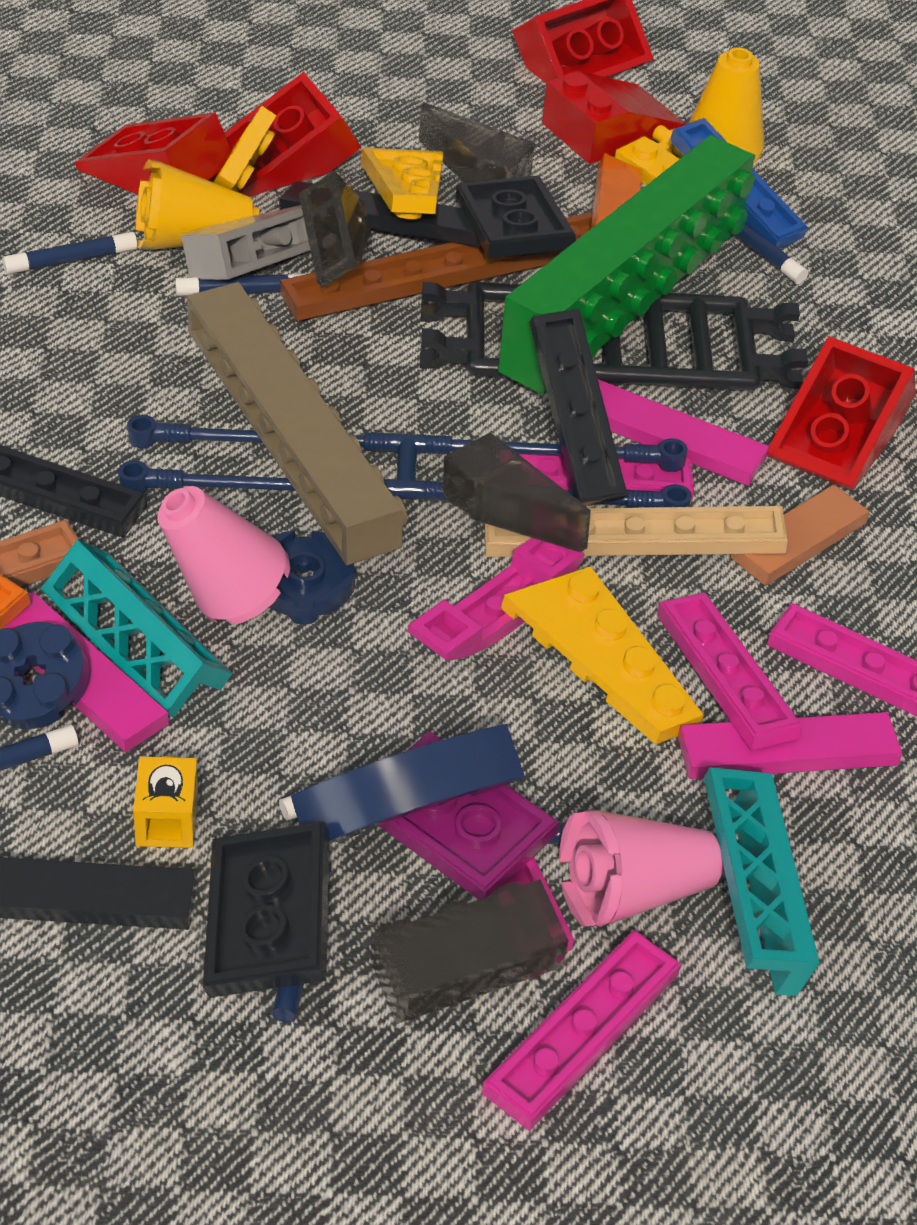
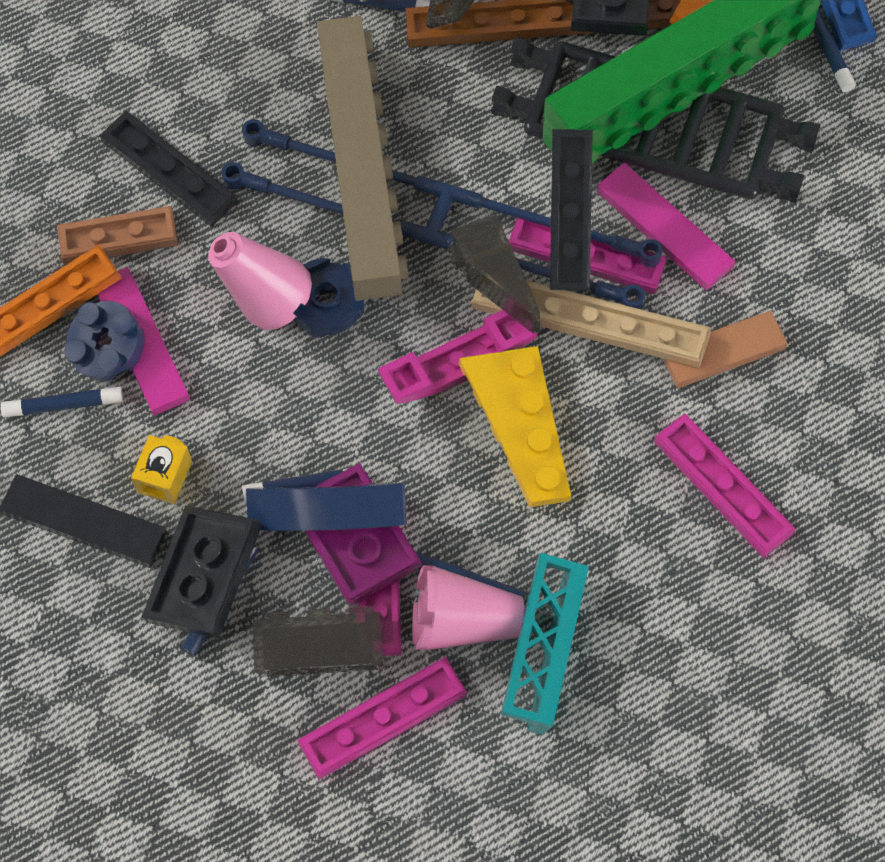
camera: 25 degrees right, 20 degrees up
(148, 617) = (195, 306): teal fence -> none
(729, 671) = (606, 462): dark pink tile -> none
(823, 745) = (627, 536): dark pink tile -> none
(844, 413) = (806, 248): red slope -> none

